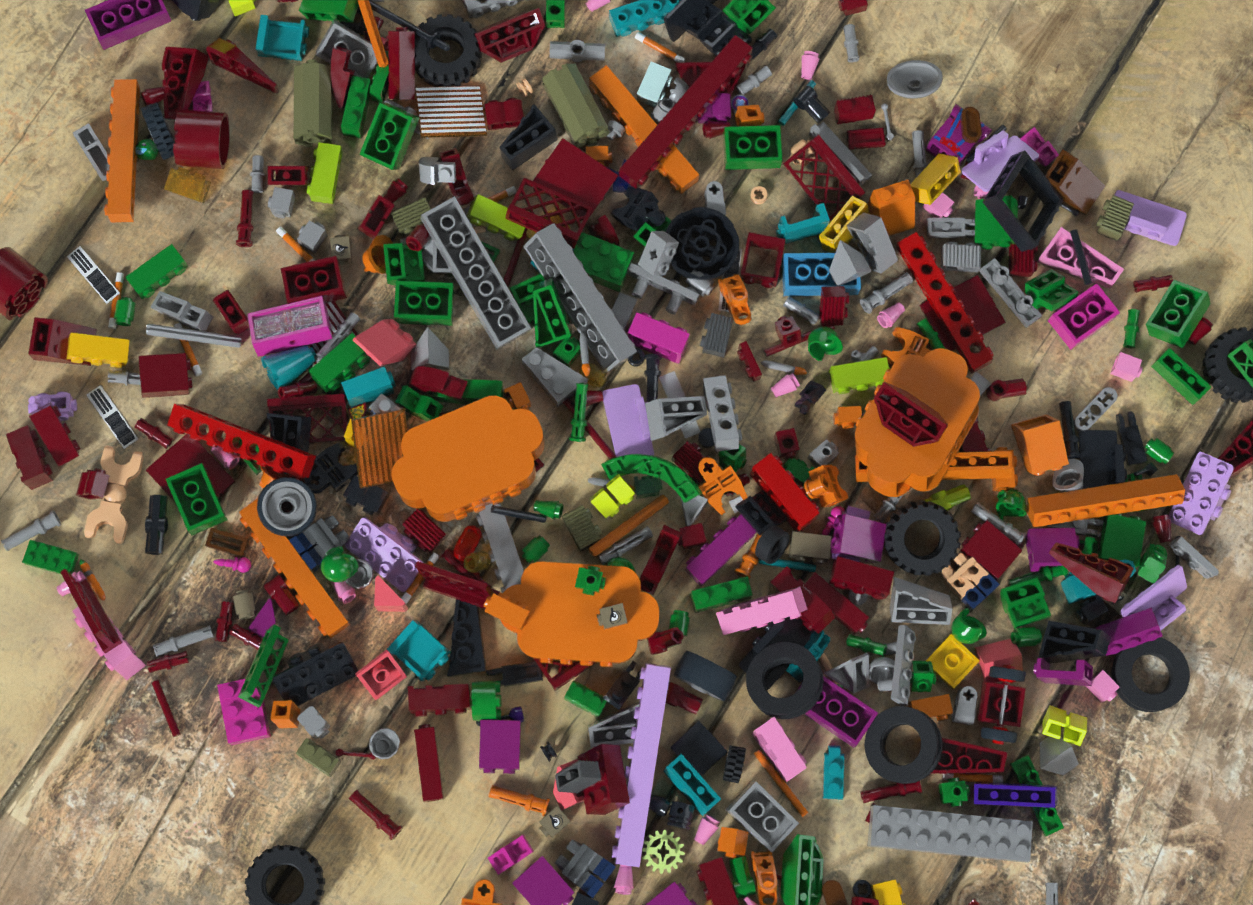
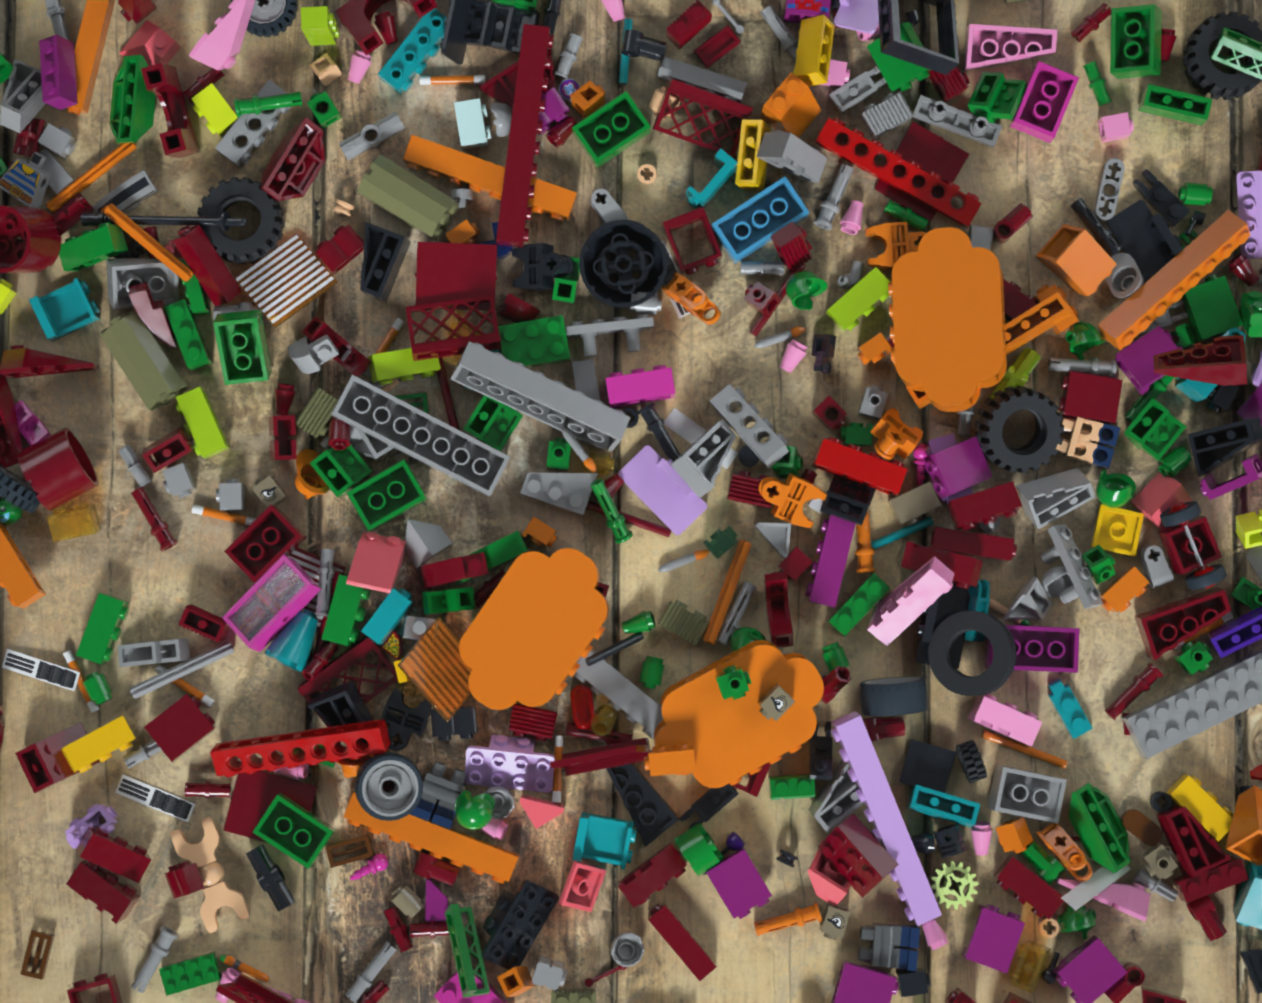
camera: 25 degrees left, 10 degrees up
(510, 854) = (812, 976): dark pink slope -> none
(549, 314) = (520, 432): green wedge -> none
(578, 776) = (835, 871): dark grey brick -> none
(604, 501) = (690, 584): neon yellow piece -> none
(655, 467) = (719, 521): green tile -> none
(658, 253) = (588, 301): light grey brick -> none
(661, 109) = (498, 148): light grey brick -> none
(717, 335) = (694, 346): dark grey brick -> none
(752, 368) = (735, 349): dark red plate -> none
(772, 544) = (878, 525): black tyre -> none
(847, 264) = (783, 197): light grey slope -> none
(866, 645) = (1027, 566): green pin -> none
(876, 745) = (1139, 619): black tyre -> none
(908, 416) = (942, 324): dark red wedge -> none
(1081, 257) = (1007, 43): black bar -> none

